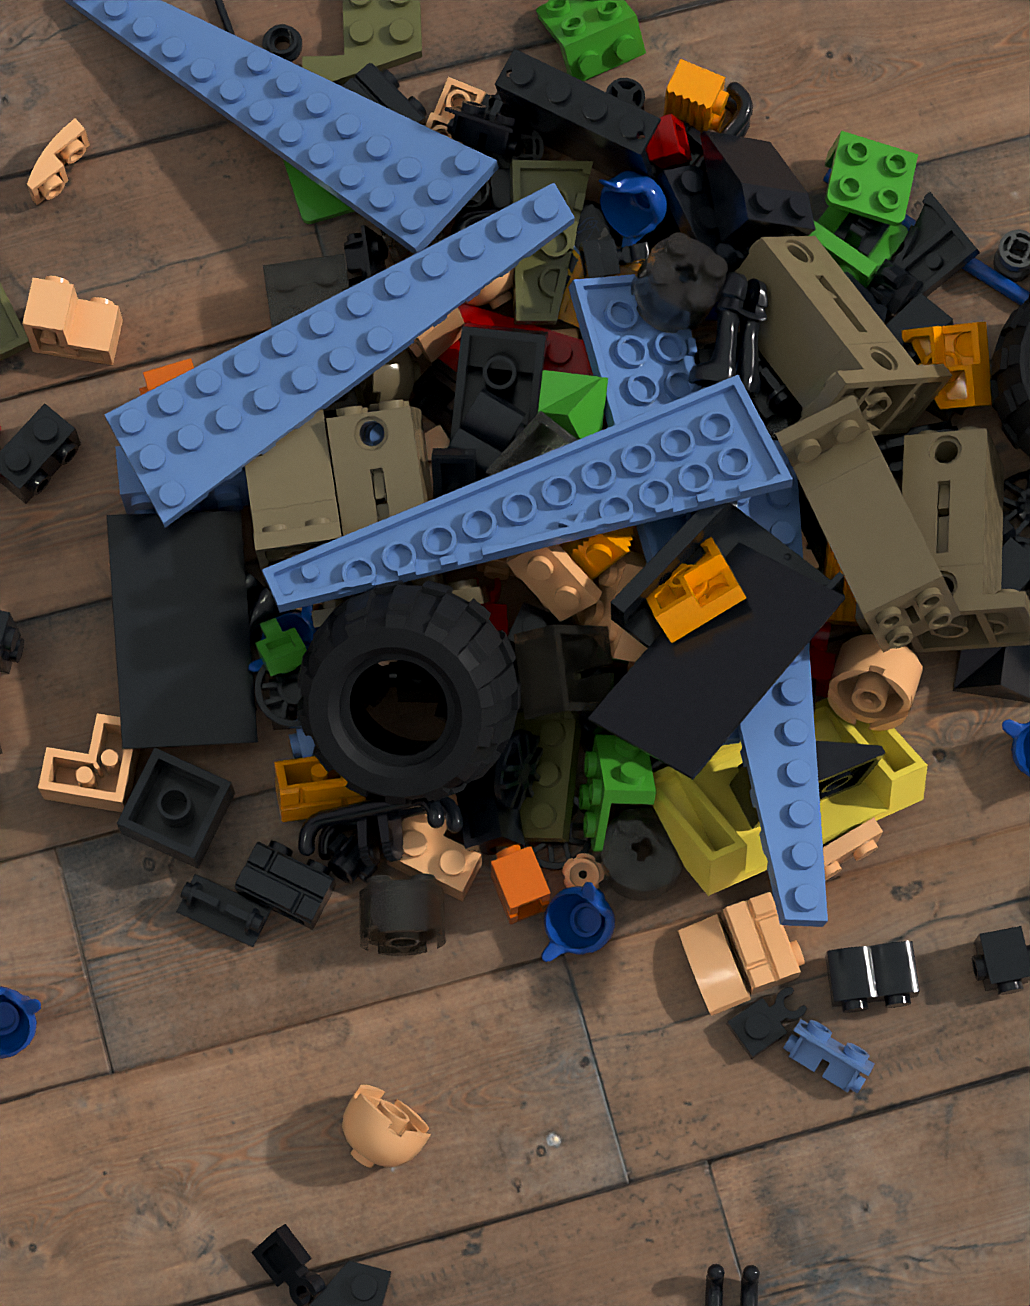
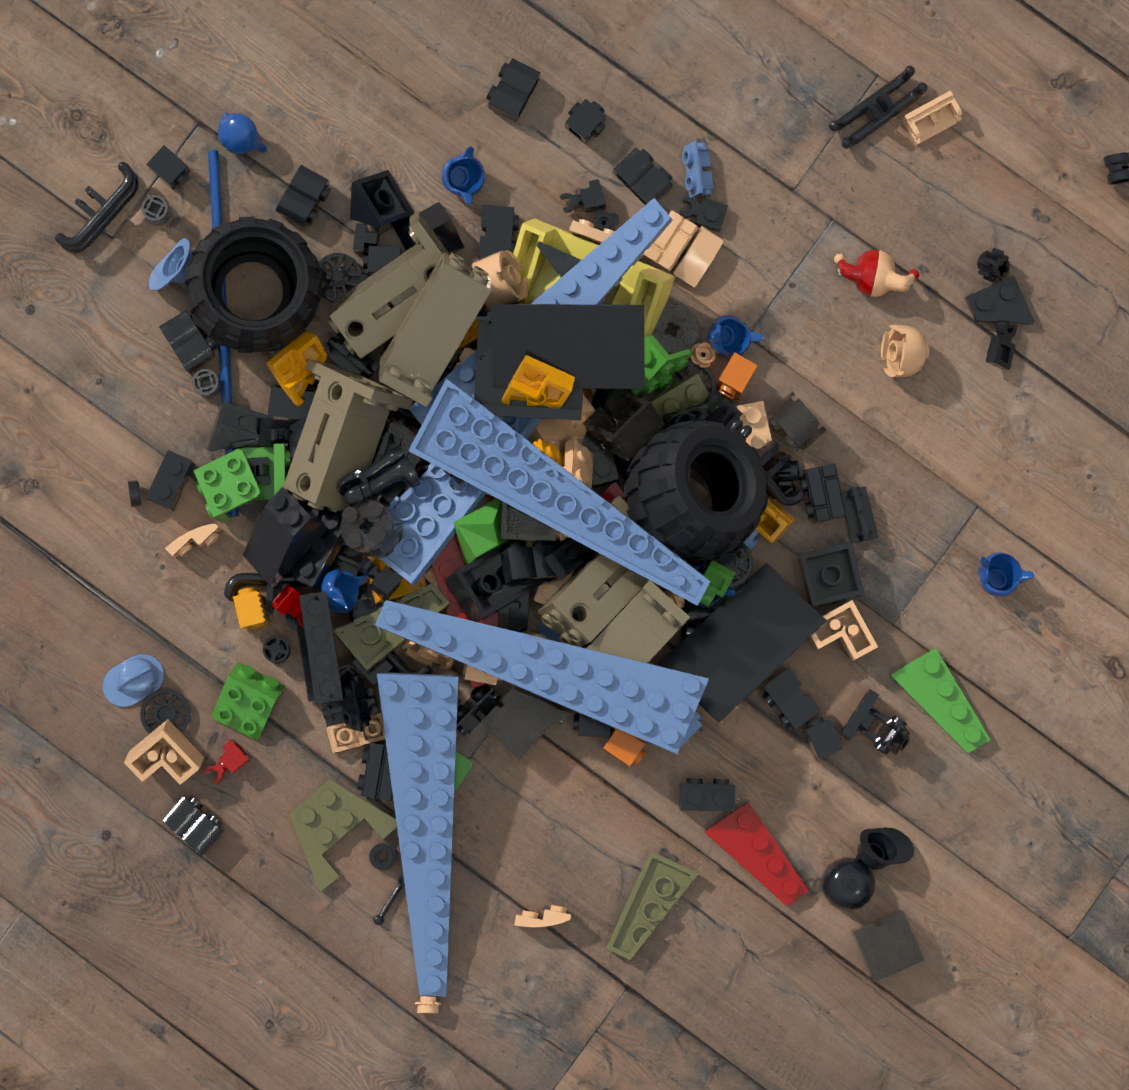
camera: 130 degrees left, 10 degrees up
(67, 641) = (788, 699): none -> black brick
(70, 326) = (624, 833): light nougat brick -> none
(513, 1173) = (875, 273): none -> piece
(828, 120) = (202, 535): none -> light nougat slope
(850, 893) = (600, 215): none -> black plate
(895, 887) = (590, 197): none -> black piece
(927, 128) = (170, 480): none -> black brick
(939, 739) = (499, 226): none -> black brick
(944, 79) = (134, 492): none -> black tile

